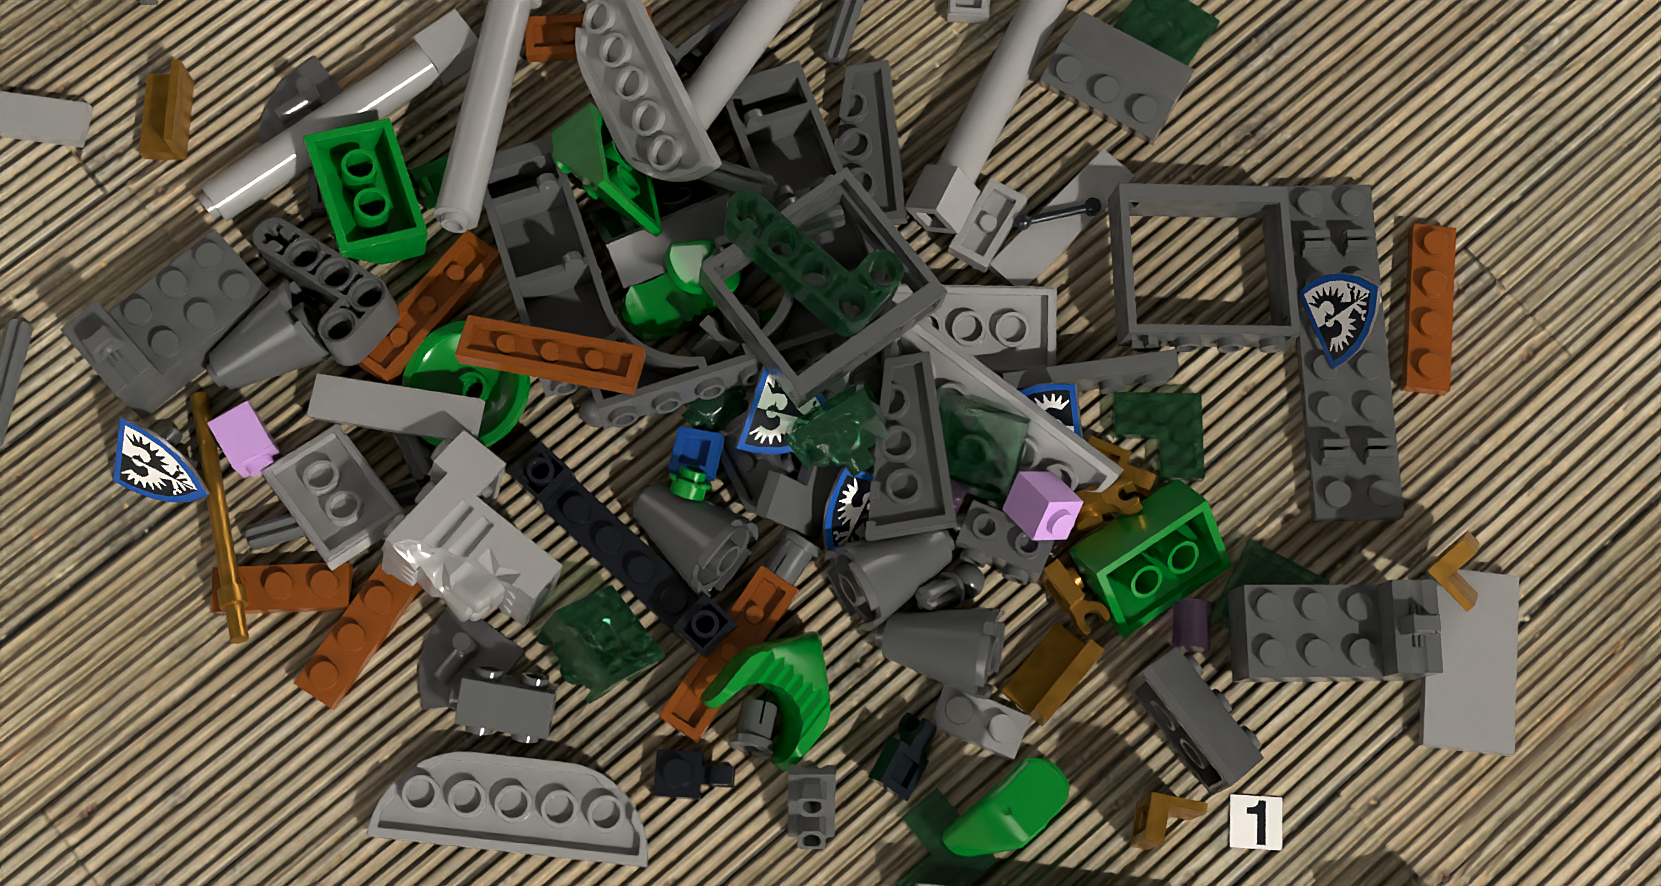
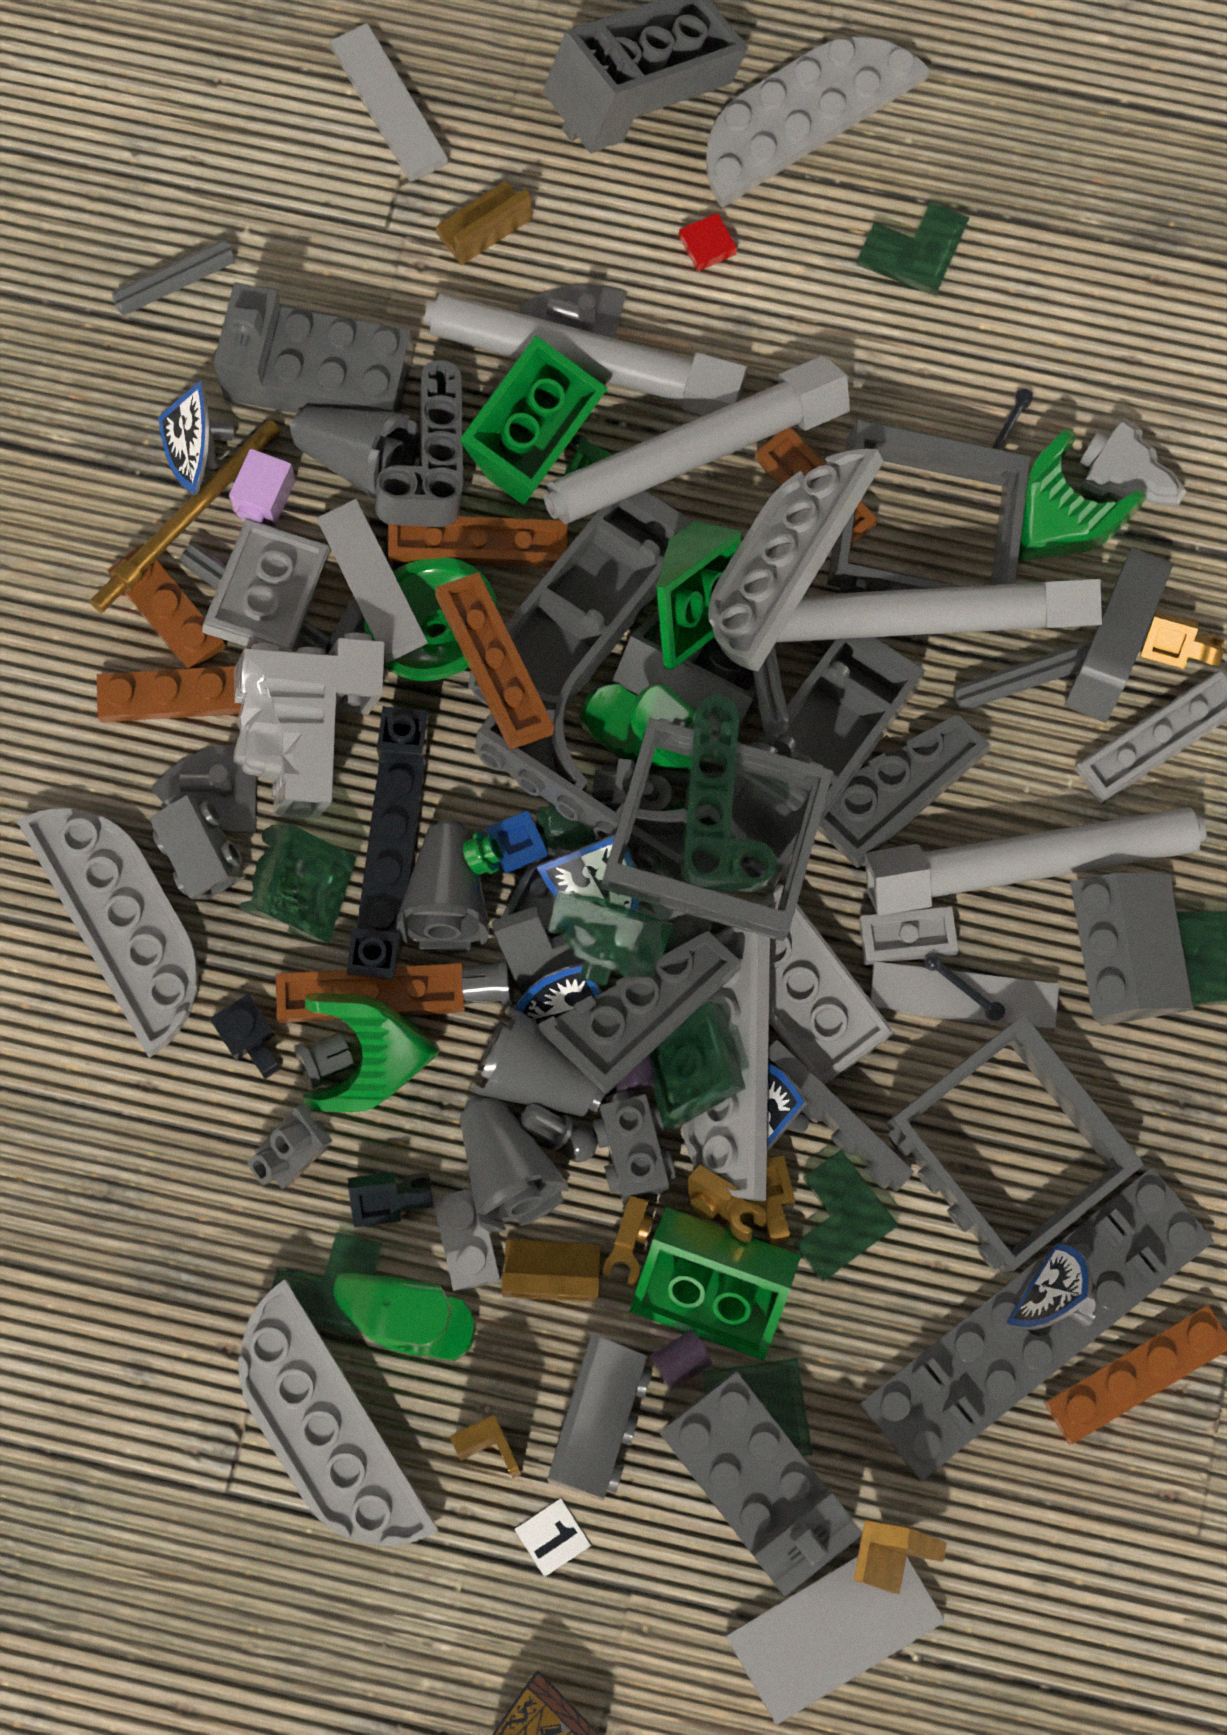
camera: 55 degrees right, 0 degrees up
(1042, 505) = (681, 1154): lavender brick -> none

